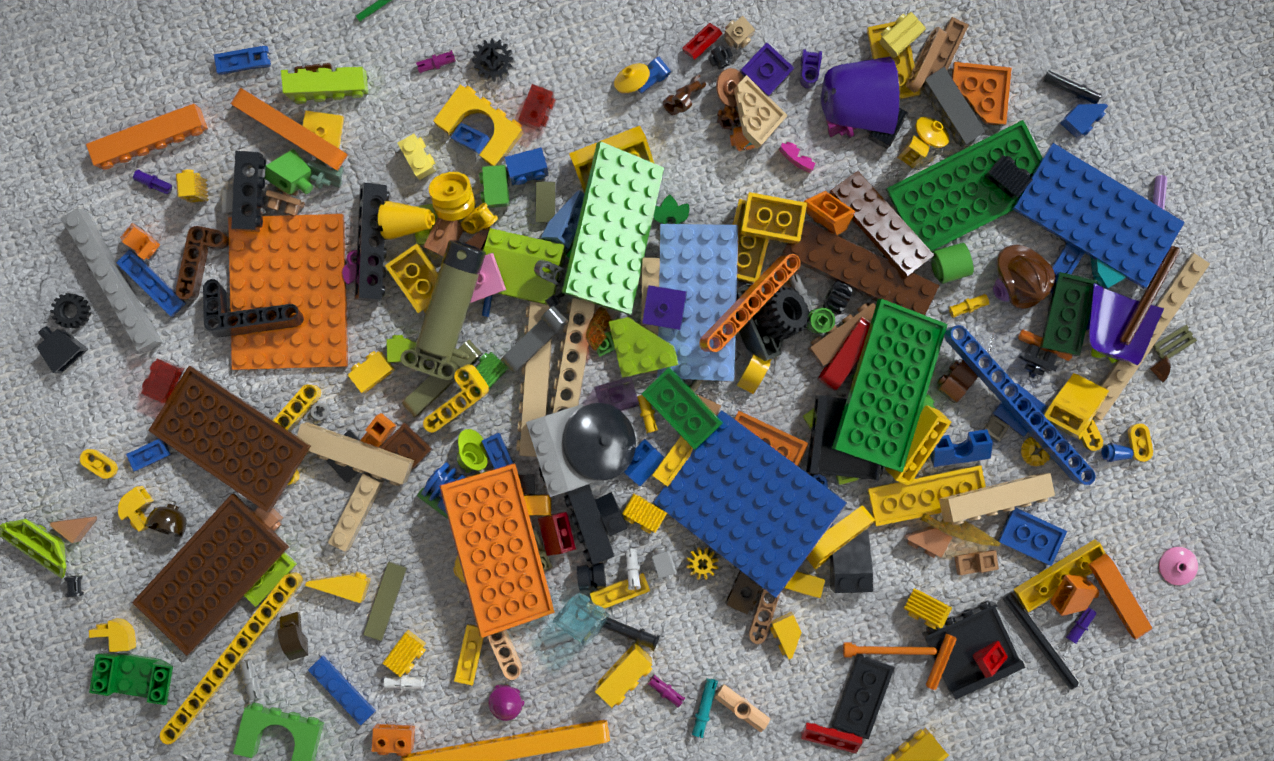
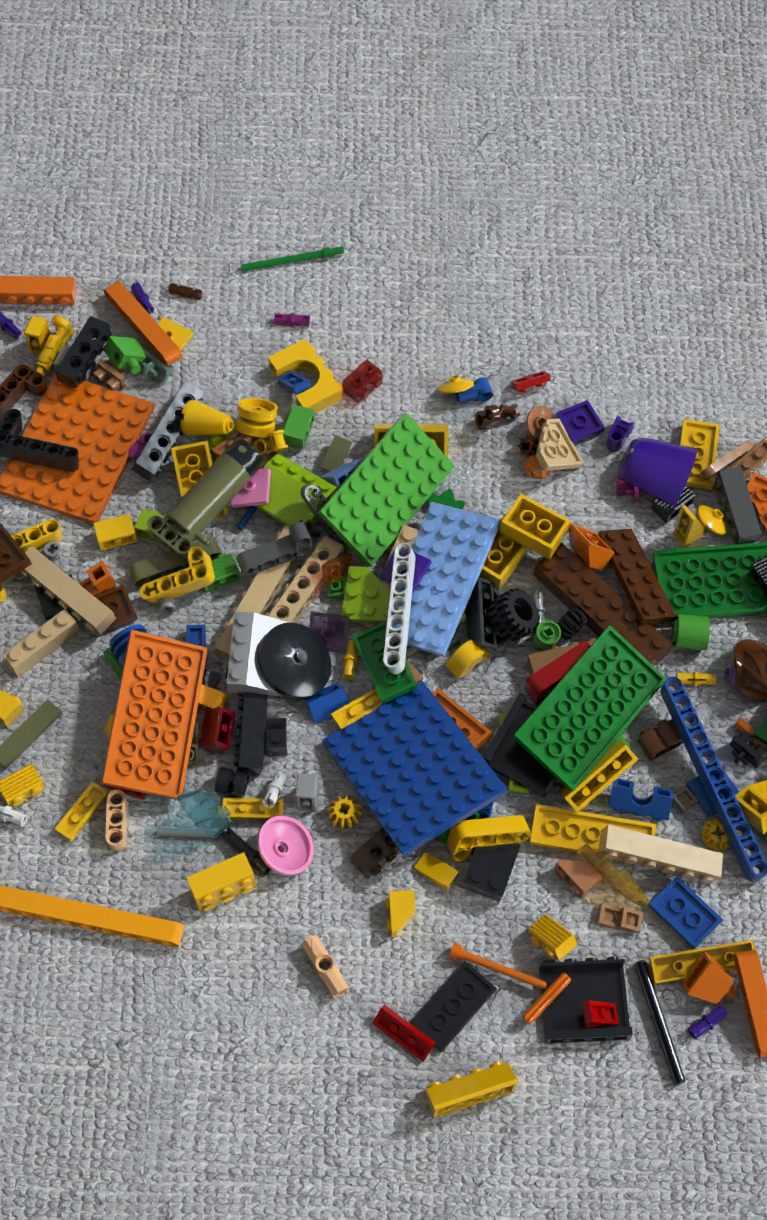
camera: 20 degrees right, 25 degrees down
(212, 192) = (54, 344): none -> yellow piece
(242, 60) = (130, 264): blue plate -> none
(273, 97) = (142, 297): none -> dark purple axle
(324, 84) = (189, 301): lime wedge -> none
(416, 156) = (240, 380): light yellow brick -> none
(471, 451) = (172, 626): lime piece -> none
(501, 60) = (341, 333): black gear -> none
(505, 702) = (93, 869): magenta hair -> none
(527, 166) = (332, 420): blue brick -> none
(644, 513) = (308, 745): yellow brick -> none
(666, 691) = (256, 921): magenta pin -> none
(674, 617) = (291, 839): none -> bright pink dish
(676, 366) = (399, 616): none -> white beam
(702, 715) = (281, 959): teal pin -> none
(720, 57) = (542, 397): black gear -> none
(739, 33) = (565, 384): tan brick -> none
(742, 306) = (477, 590): orange beam -> none
(770, 609) = (388, 878): medium nougat beam -> none
(791, 153) = (575, 494): dark pink slope -> none
(904, 33) = (711, 431): light yellow brick -> none

